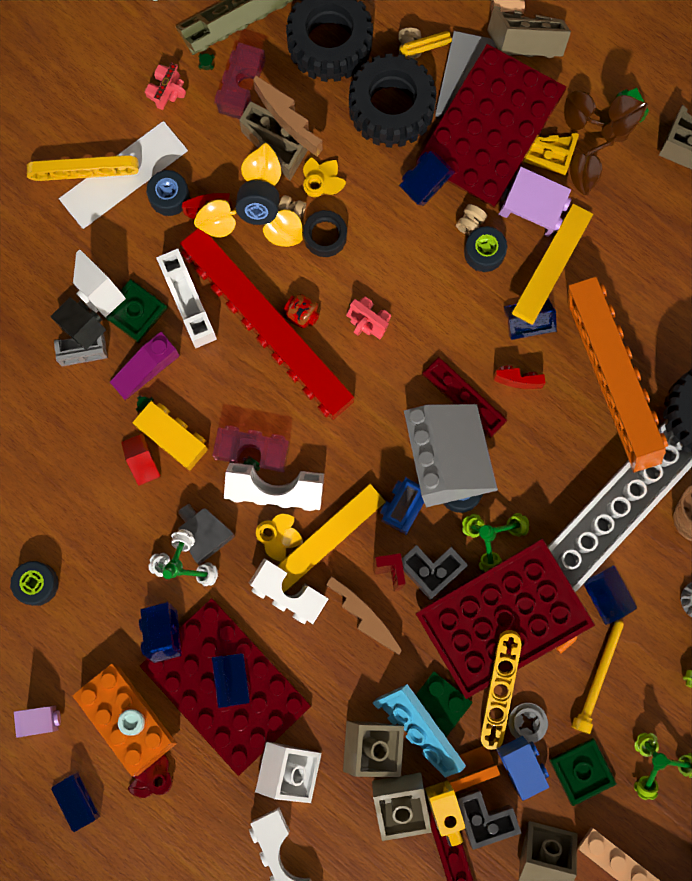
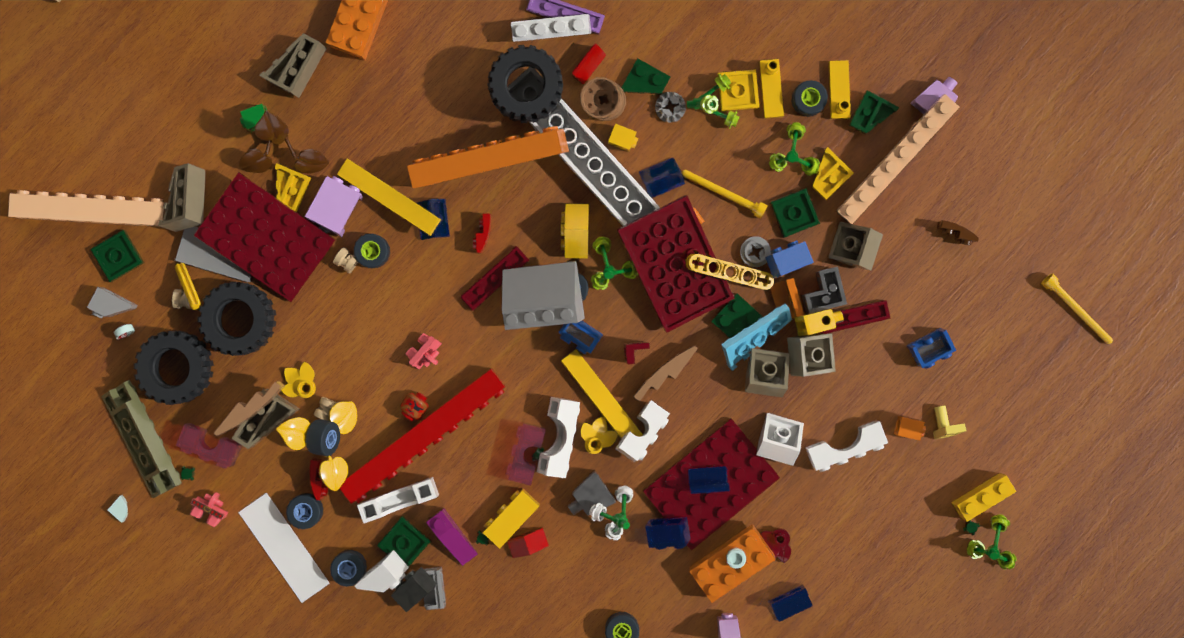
camera: 85 degrees left, 10 degrees up
(82, 168) = (278, 582): yellow beam -> none
(99, 238) = (346, 574): none -> black wheel
(325, 216) = (335, 387): black tyre -> none
(426, 178) = (308, 295): clear blue brick -> none
(432, 576) = (638, 319): flat silver brick -> none
(533, 489) = (575, 230): none -> yellow brick
(637, 816) = (831, 175): none -> yellow wing
(655, 541) = (623, 138): none -> yellow brick

